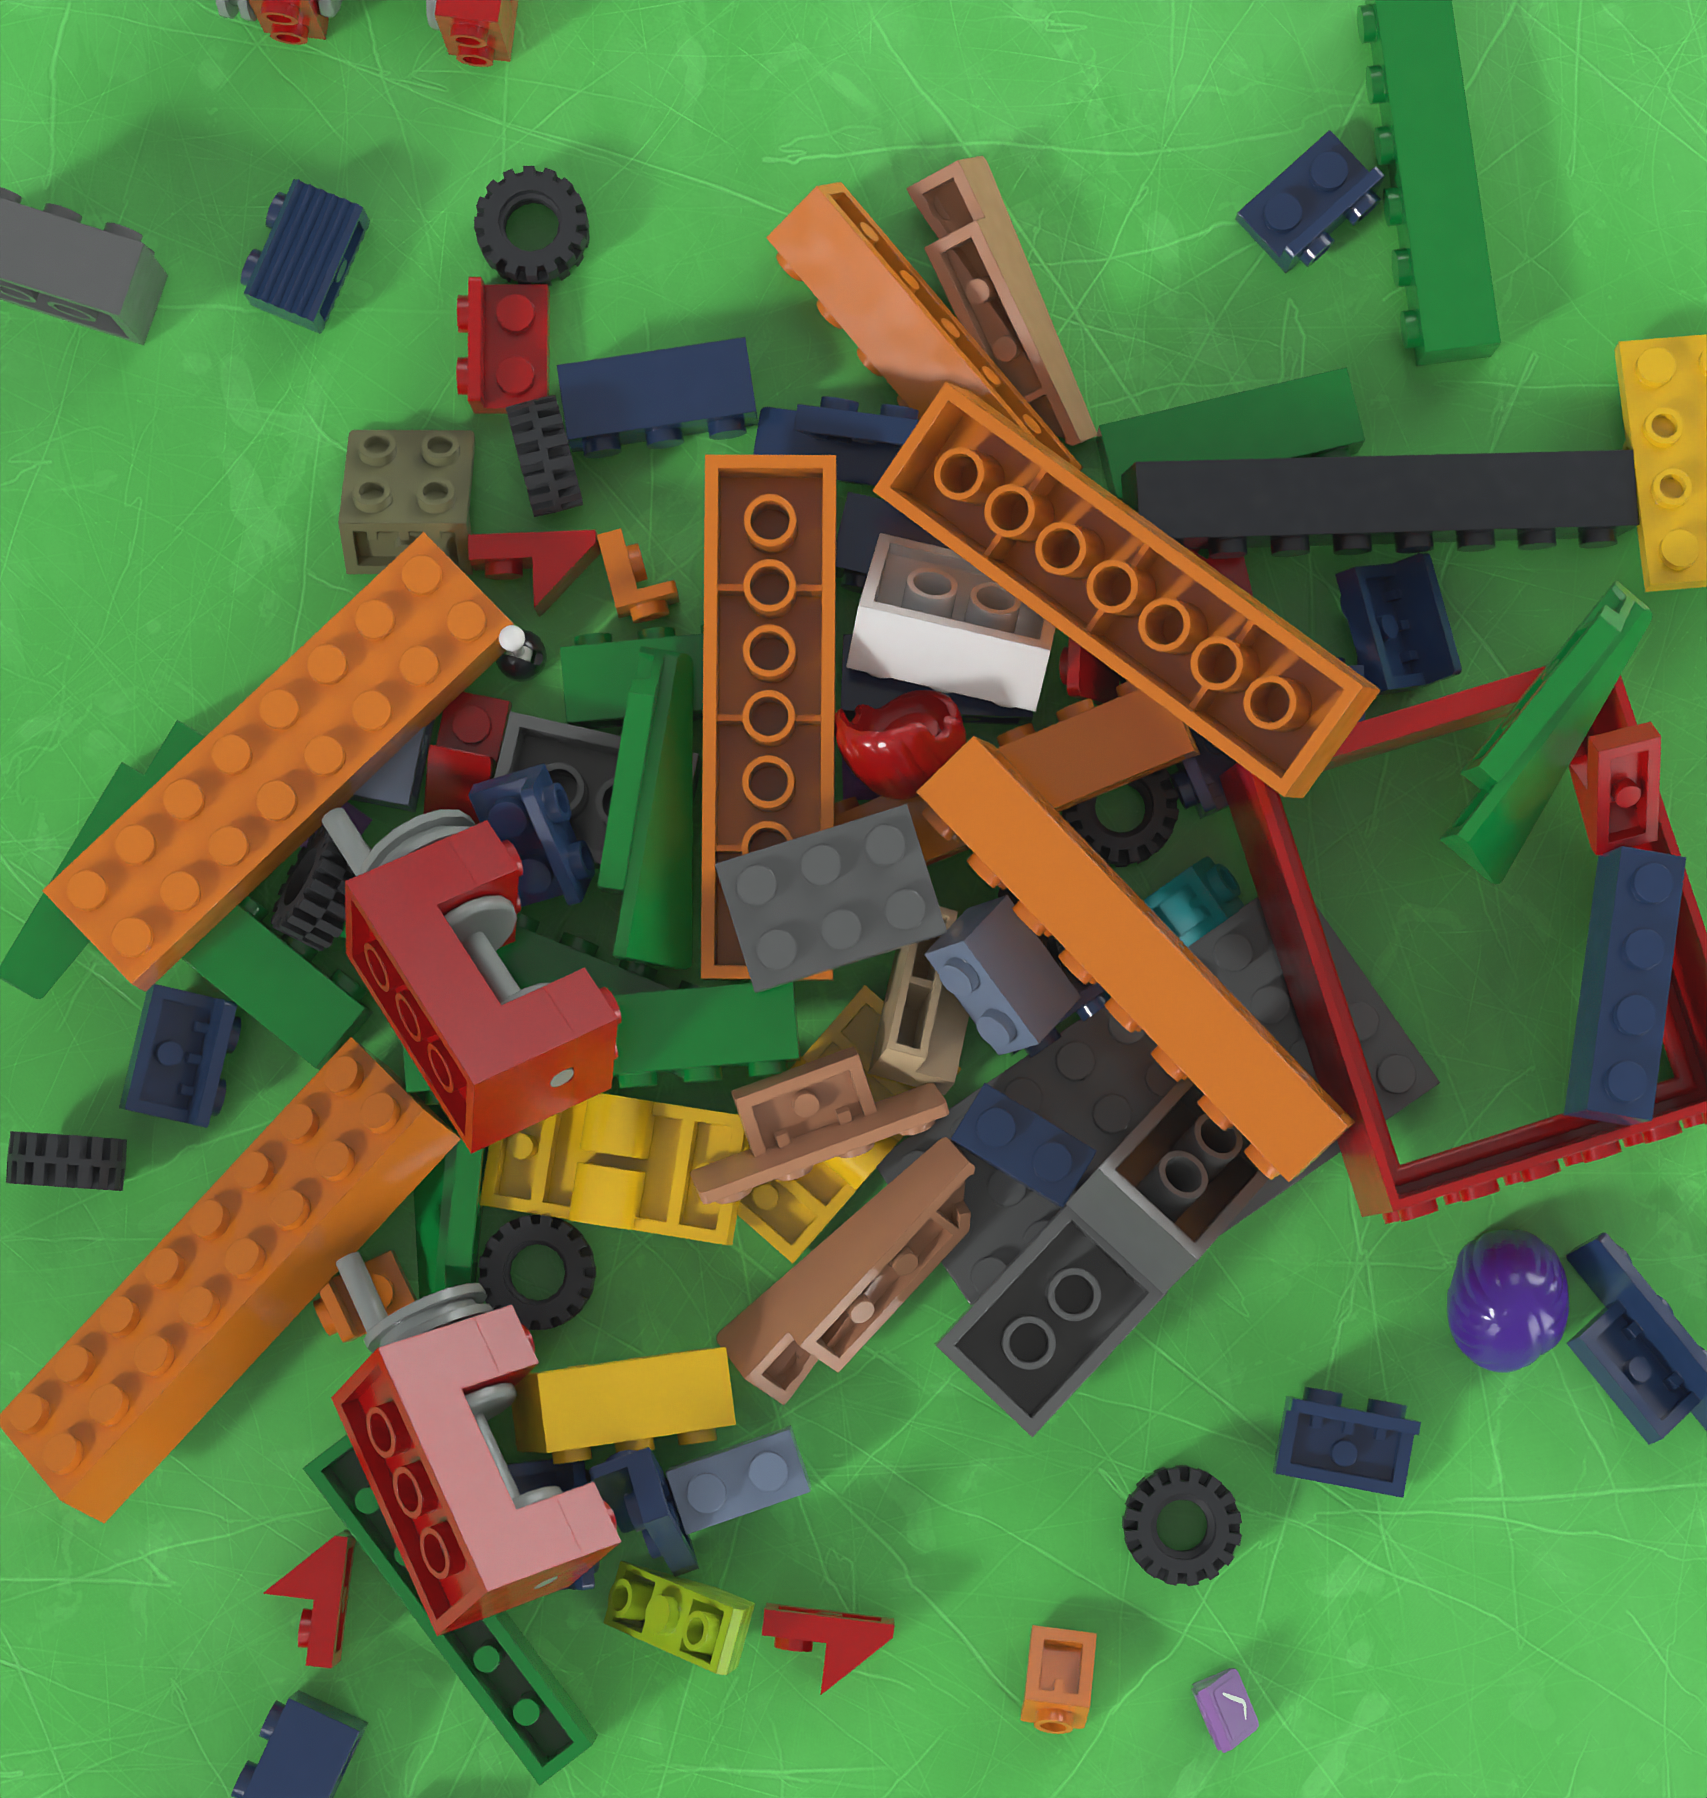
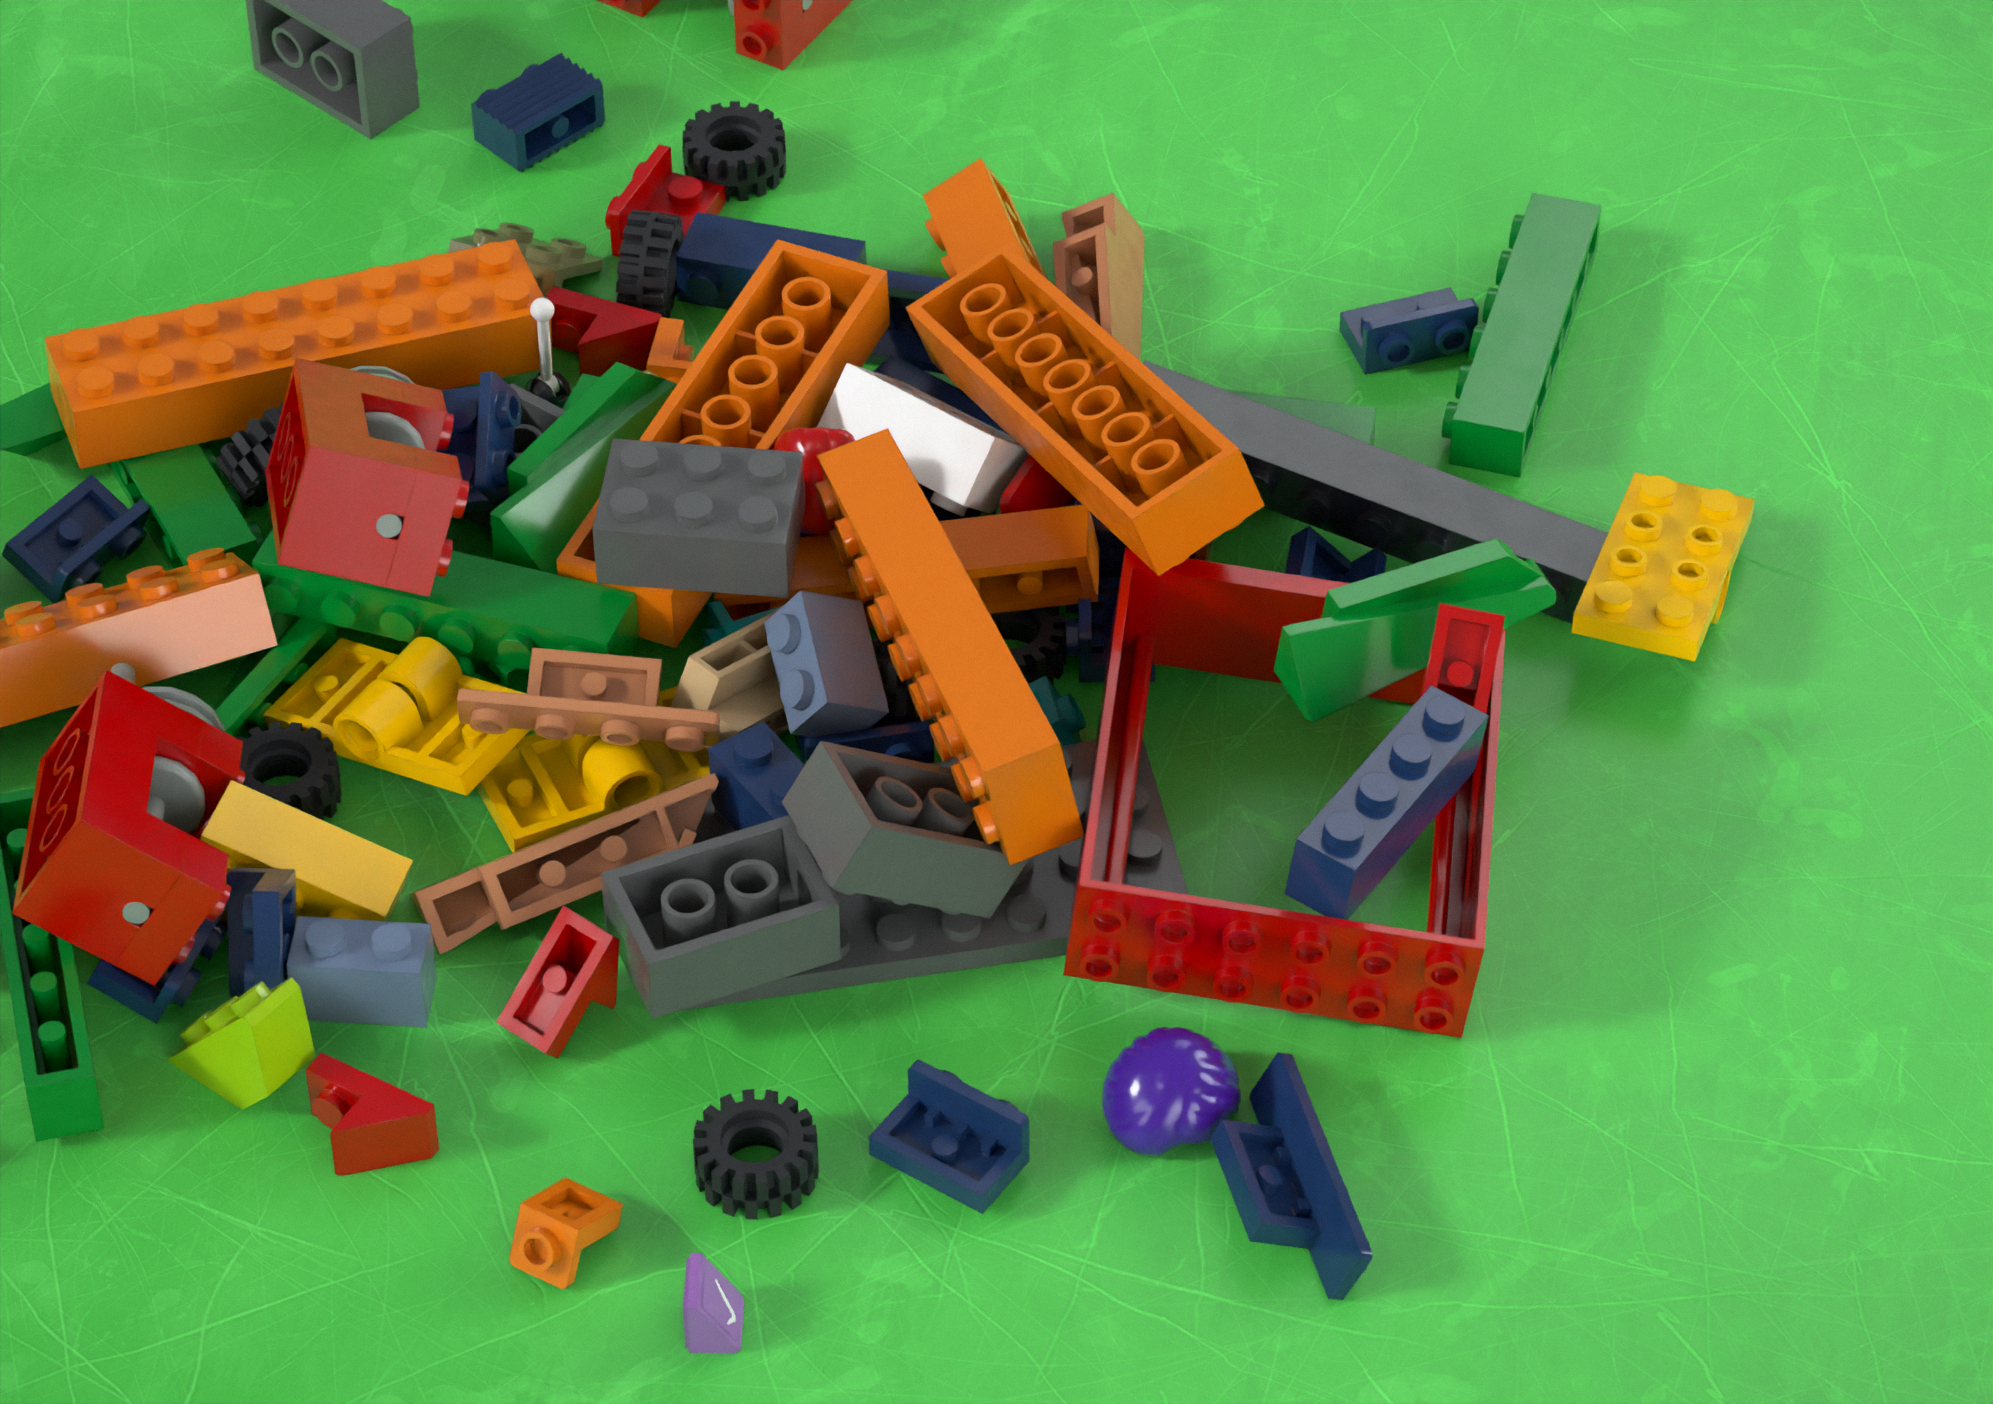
camera: 20 degrees right, 40 degrees down
(926, 1428) = (567, 973): none -> red slope

